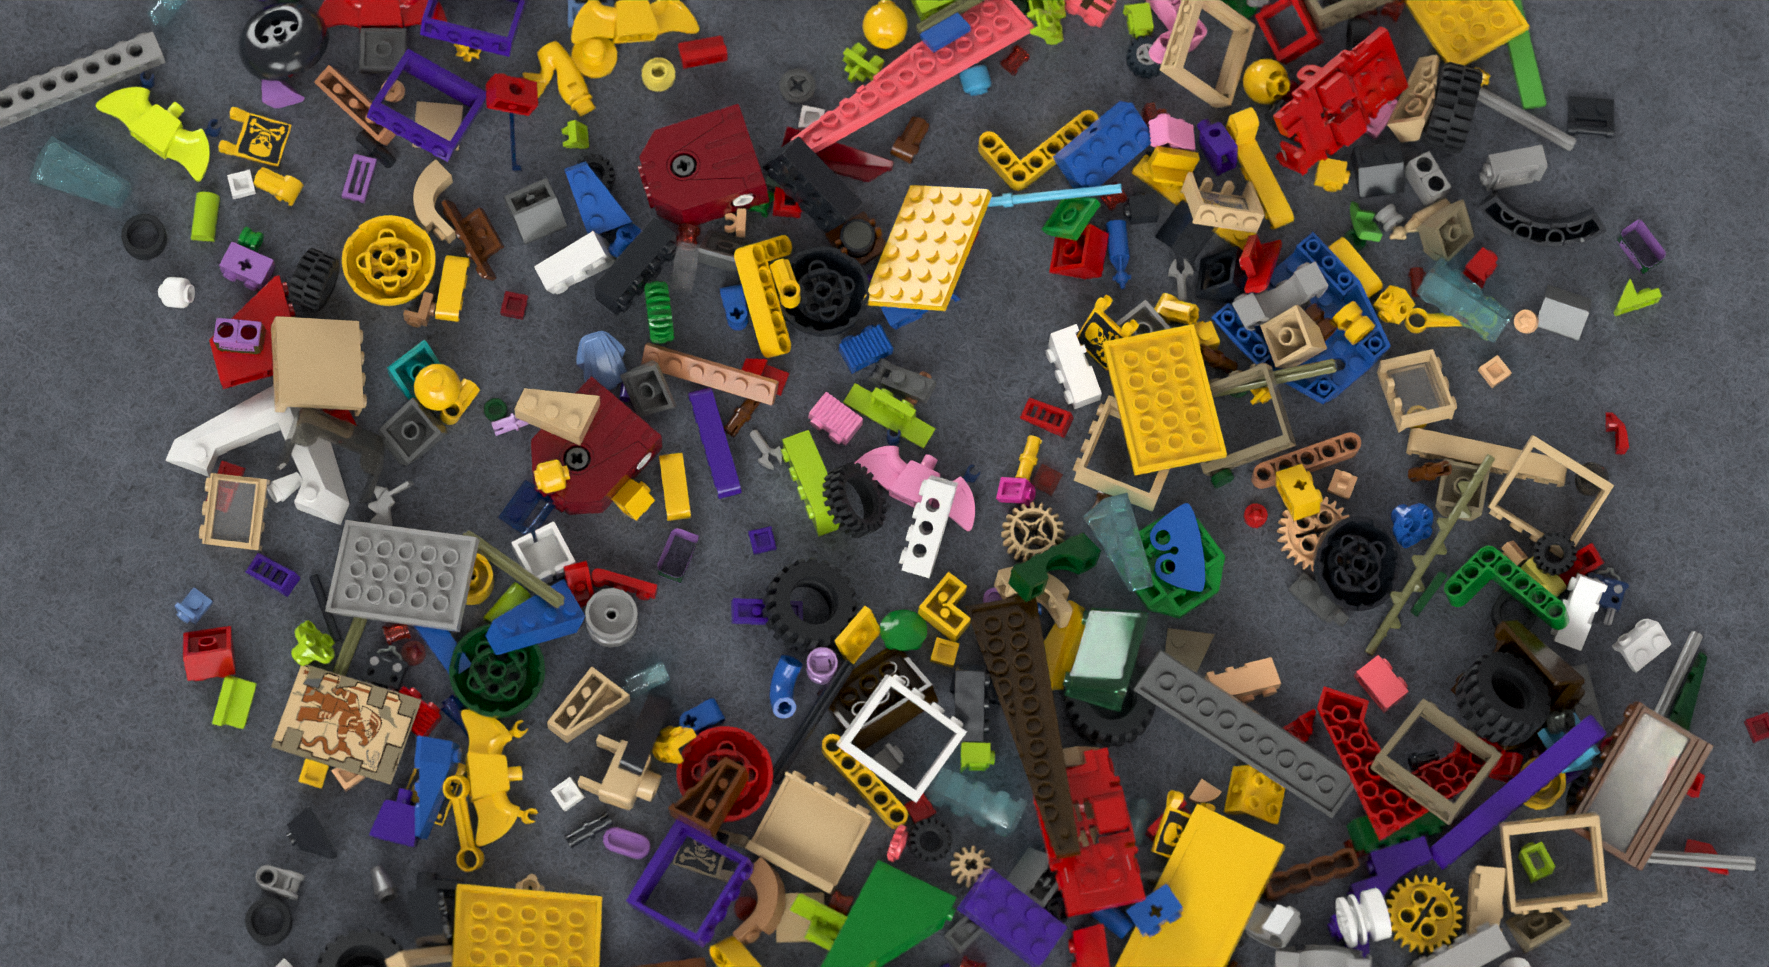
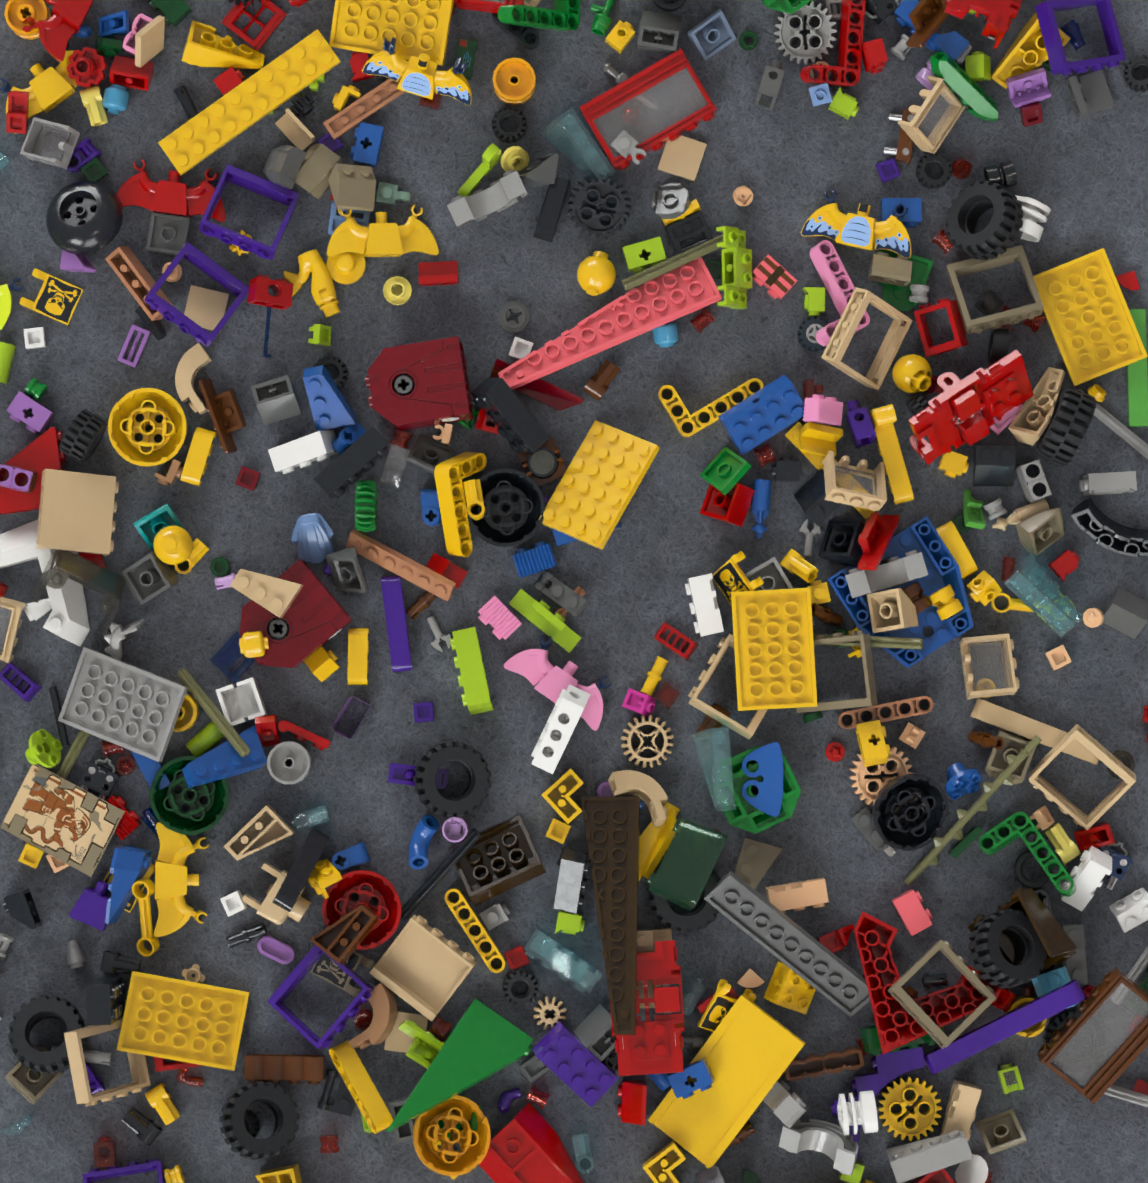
camera: 15 degrees right, 15 degrees up
(283, 188) = (68, 345): yellow piece -> none
(840, 506) = (487, 695): black tyre -> none
(858, 65) = (578, 311): lime hips -> none
(858, 635) = (488, 809): yellow tile -> none
(898, 843) = (493, 987): coral gear -> none
(903, 630) = (527, 807): green dish -> none
(916, 697) = (485, 926): white window -> none
(945, 32) = (645, 291): blue tile -> none
(1009, 199) = (676, 446): medium azure bar -> none
(1075, 554) = (678, 767): dark green arch -> none
(1540, 553) = (1080, 839): black tyre -> none
(1560, 722) = (1051, 976): pearl dark grey wheel -> none
(1570, 901) = (1024, 1061): tan window -> none

